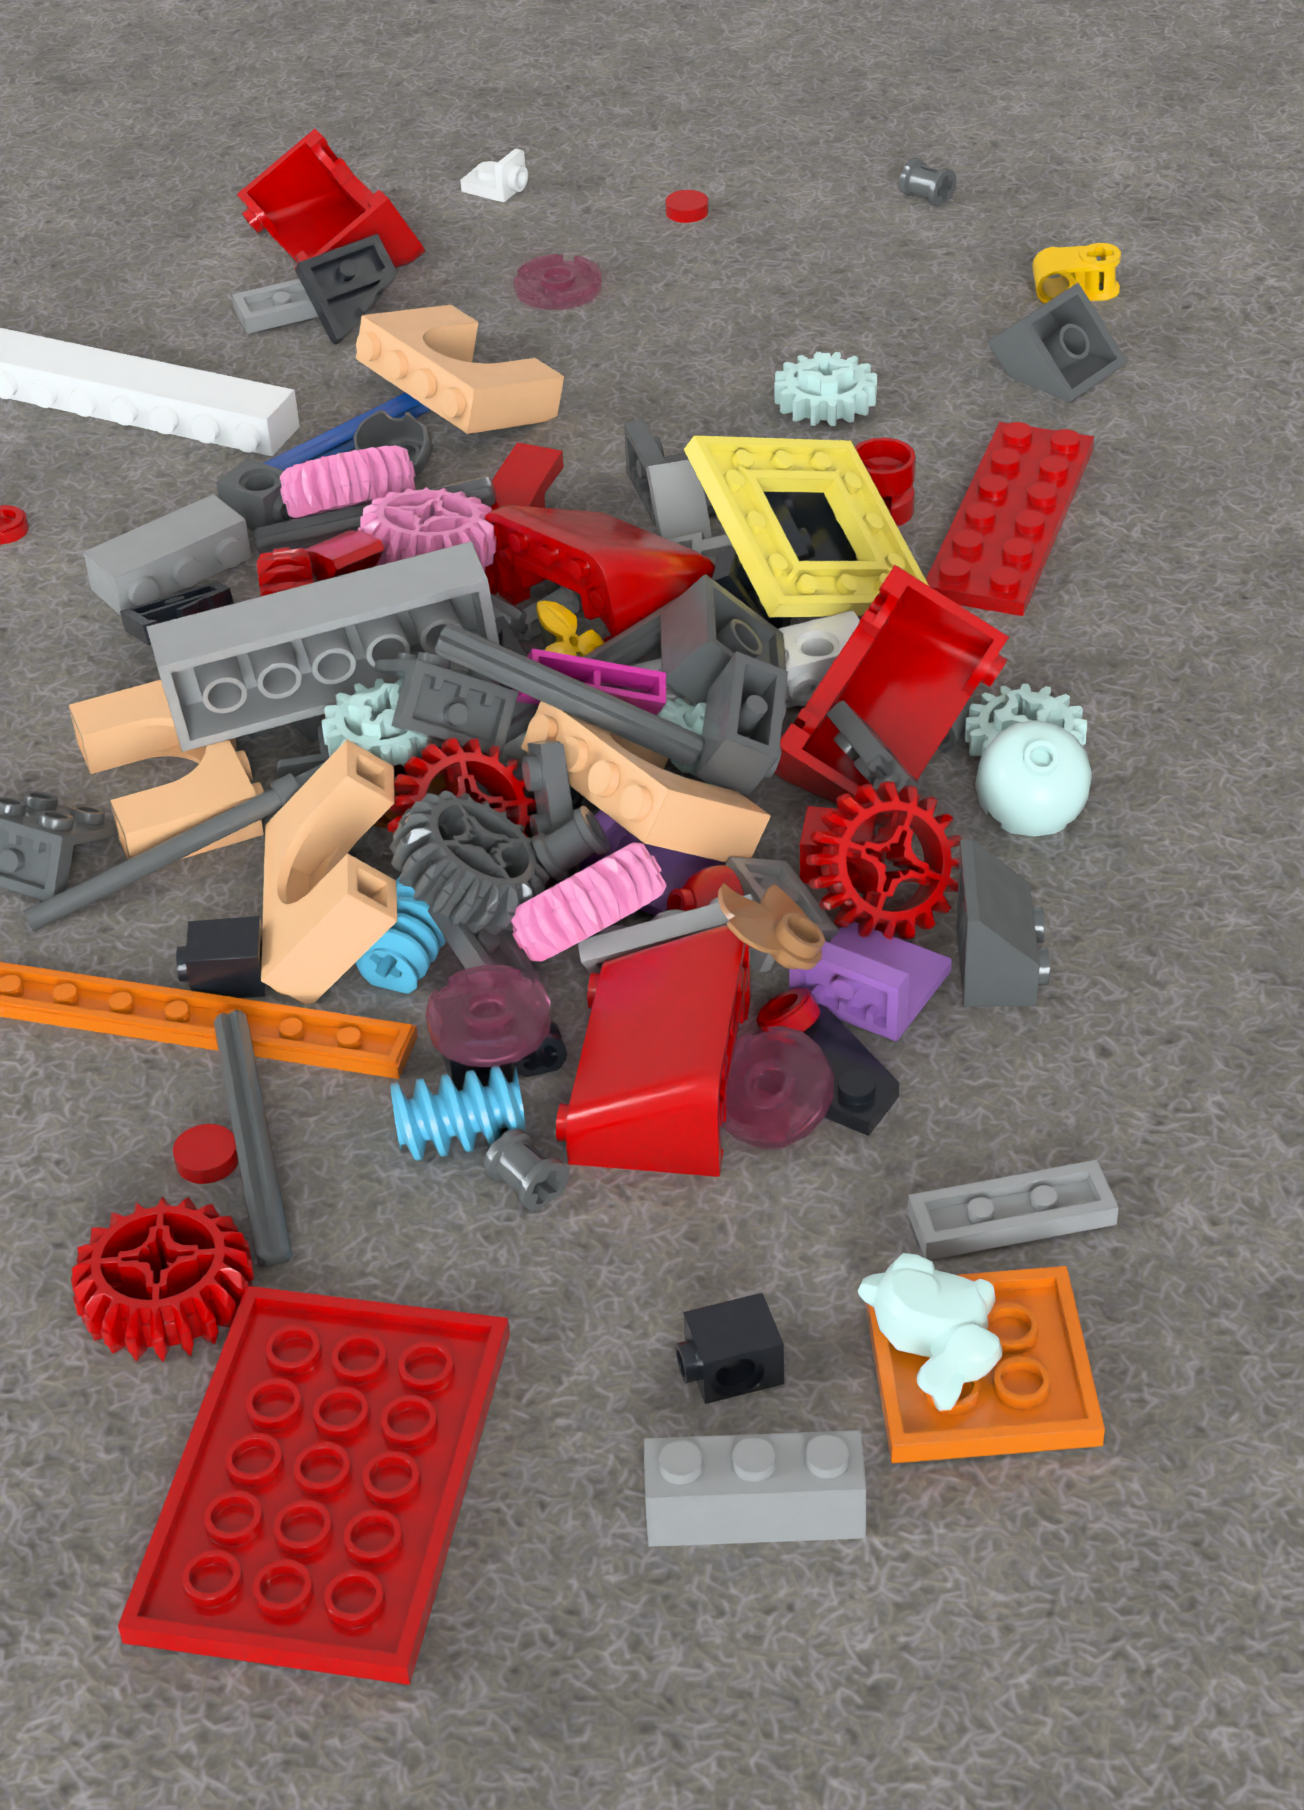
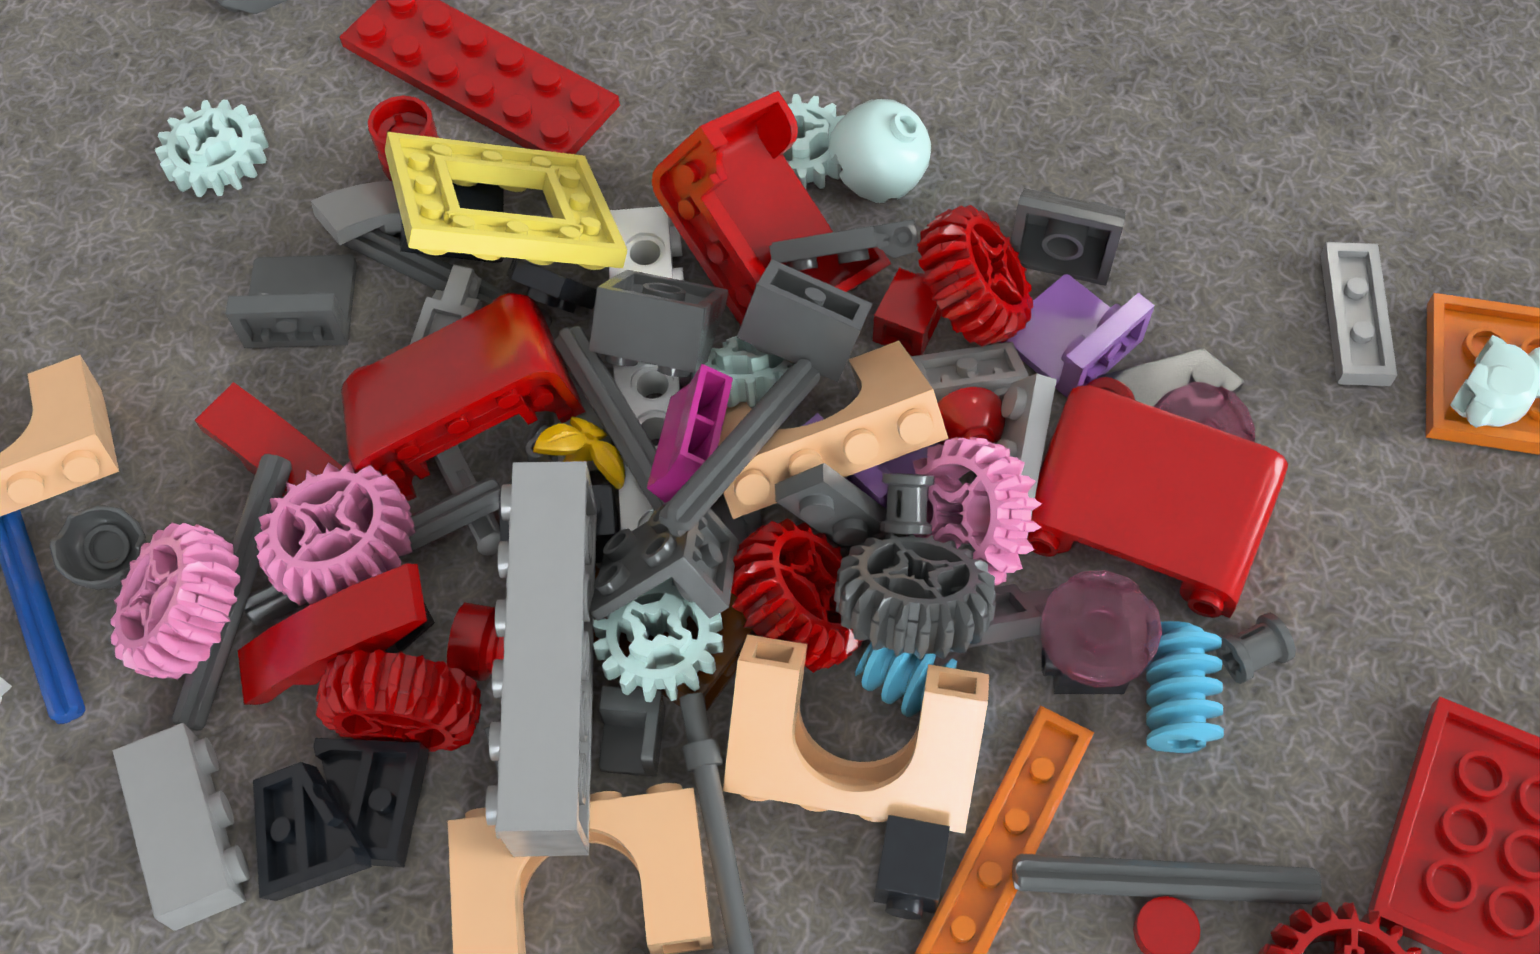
camera: 75 degrees left, 20 degrees up
(254, 493) = (96, 698): dark grey brick -> none
(678, 500) = (373, 305): light grey tile -> none
(731, 1348) = (1489, 536): black brick -> none
(774, 927) = (1077, 370): medium nougat plate -> none

